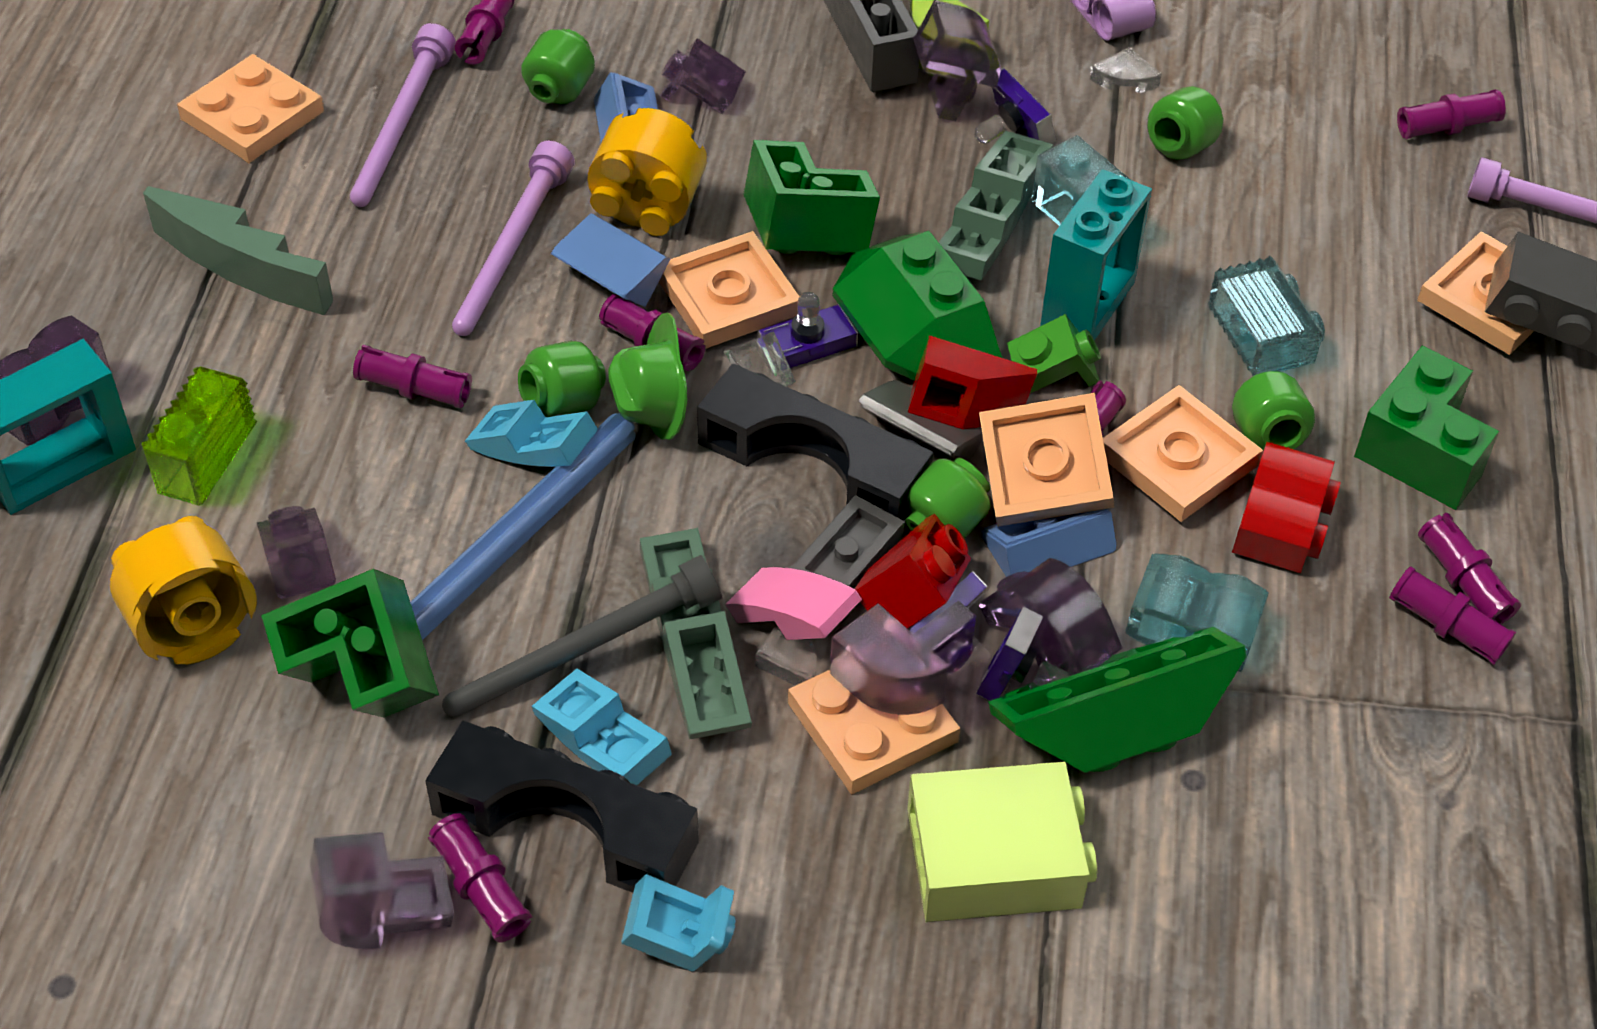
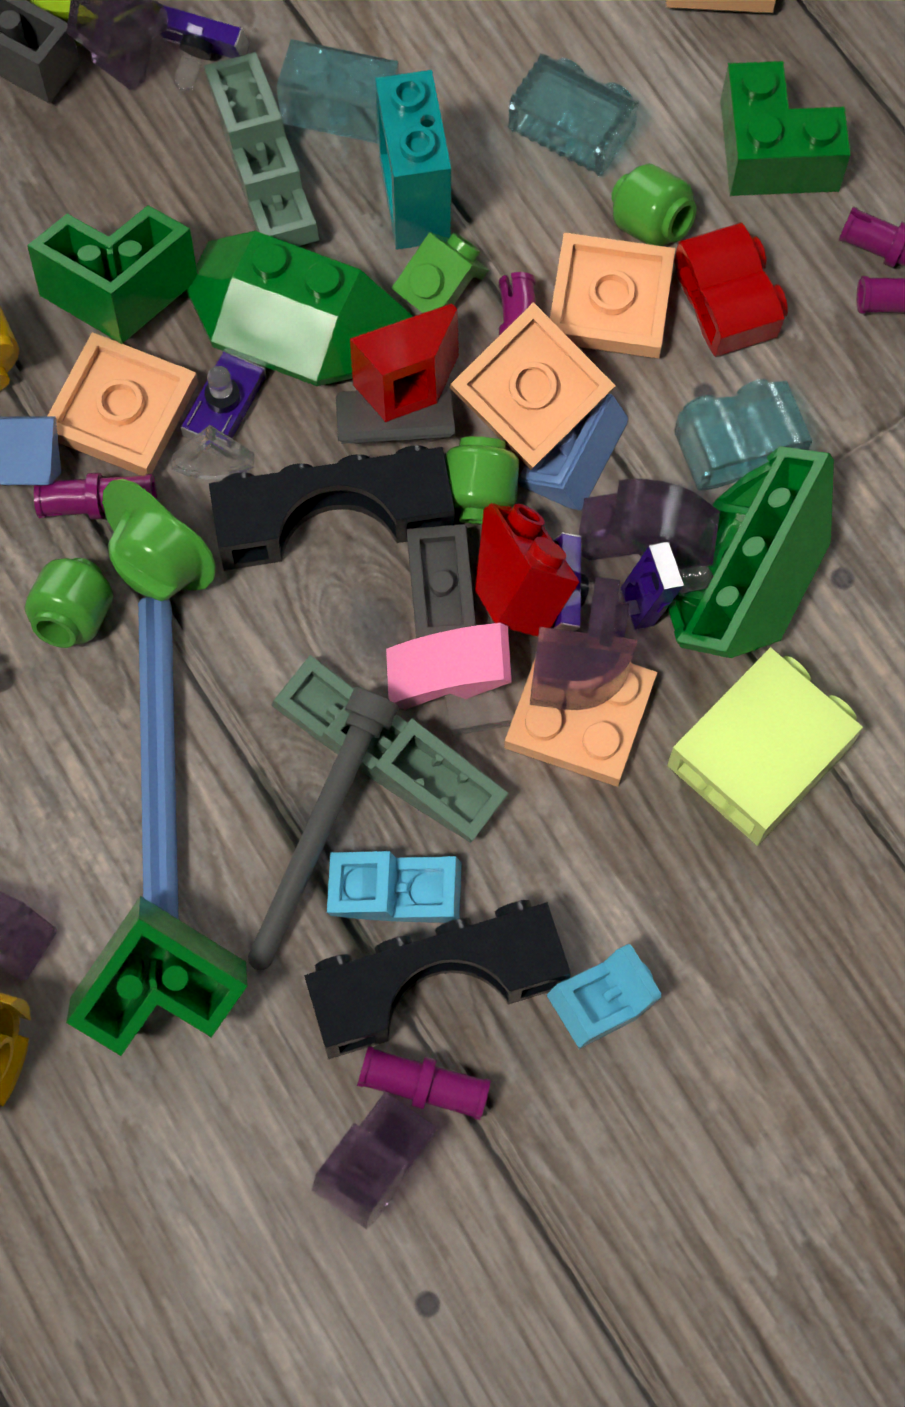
camera: 40 degrees left, 20 degrees up
(526, 437) = (91, 675): medium azure slope -> none

